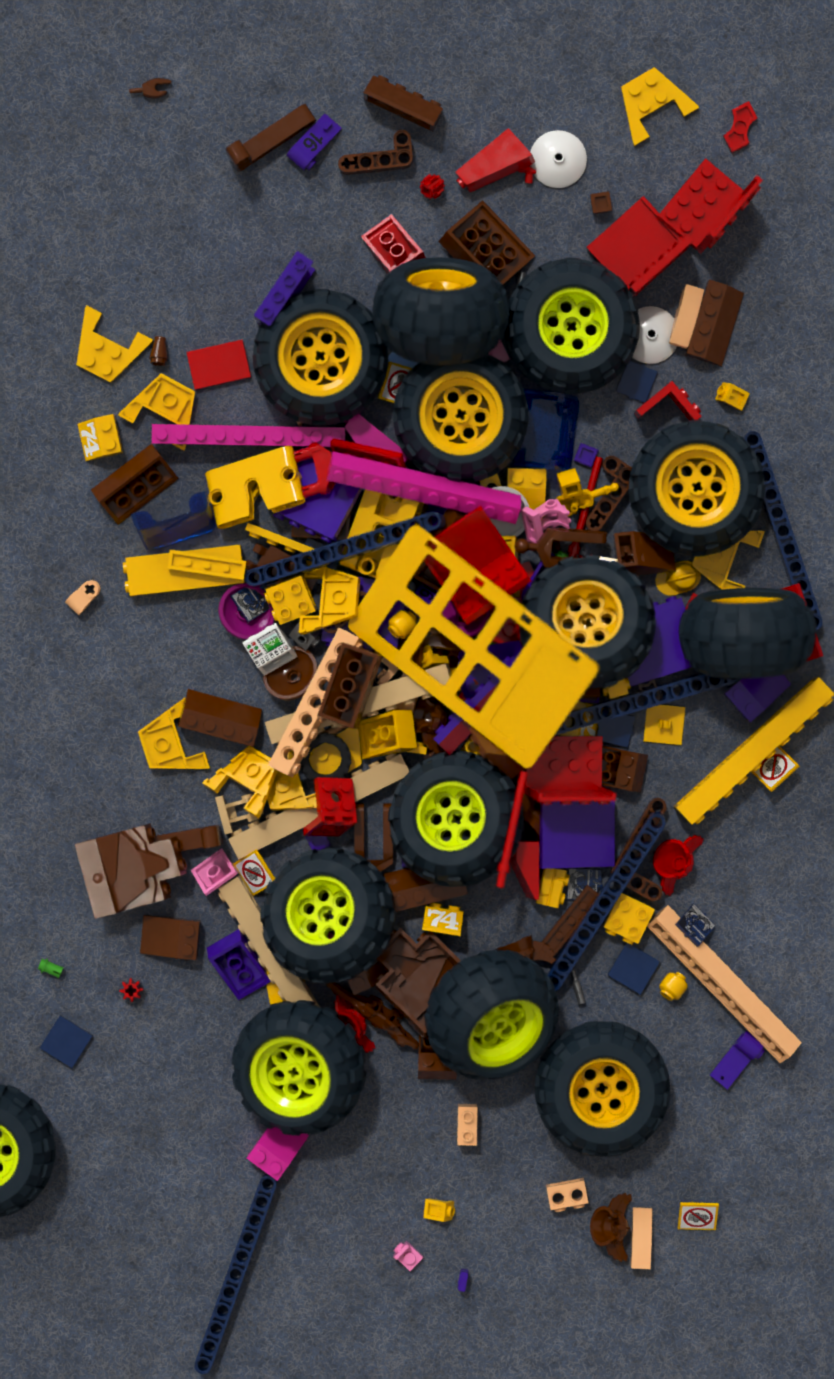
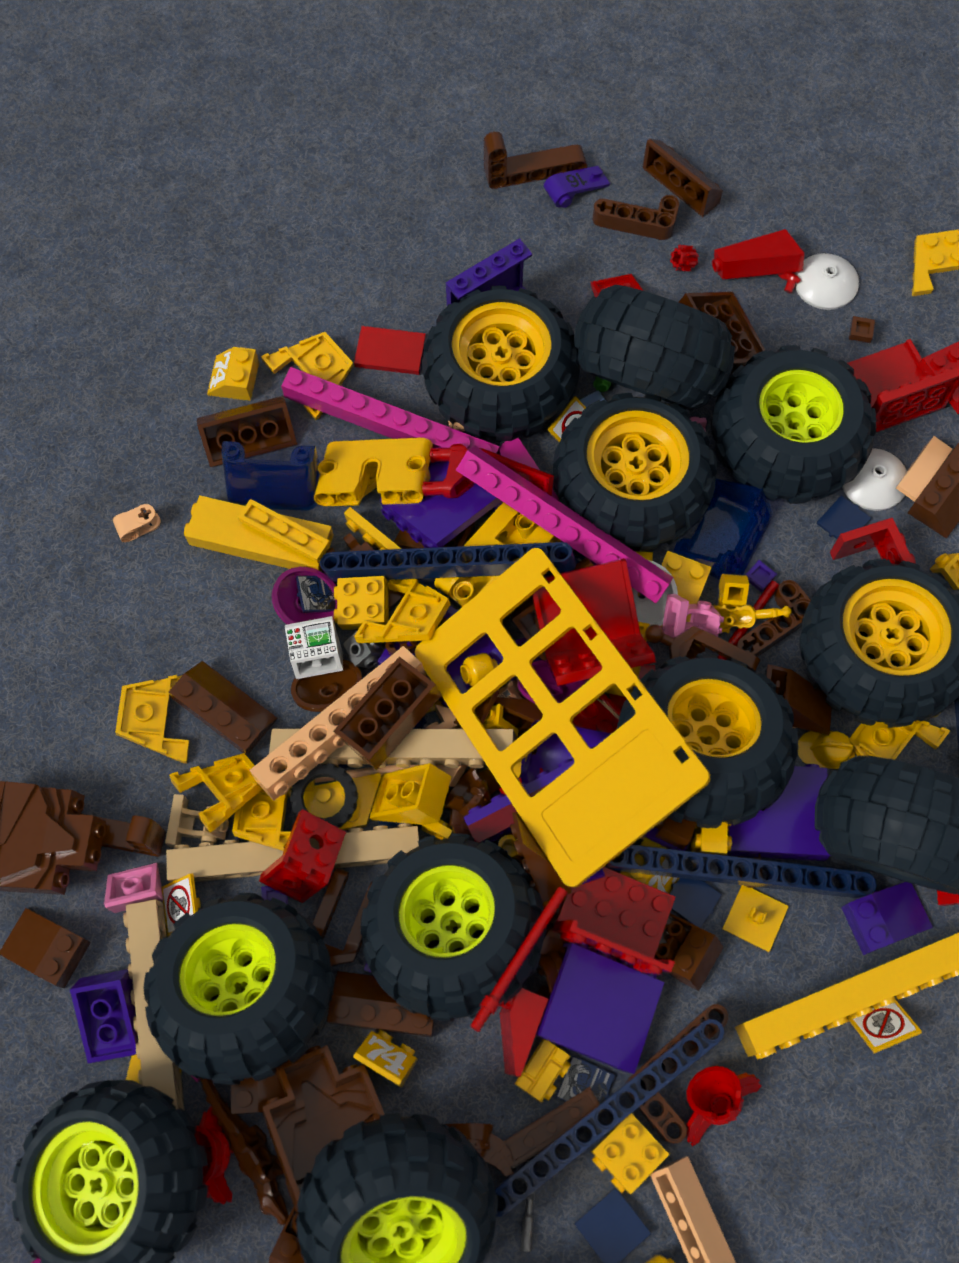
camera: 20 degrees right, 20 degrees down
(103, 355) = (275, 302): yellow wing -> none
(149, 88) = (433, 92): reddish brown hand -> none
(159, 352) = (332, 316): reddish brown cone -> none
(695, 925) = (715, 1200): piece -> none

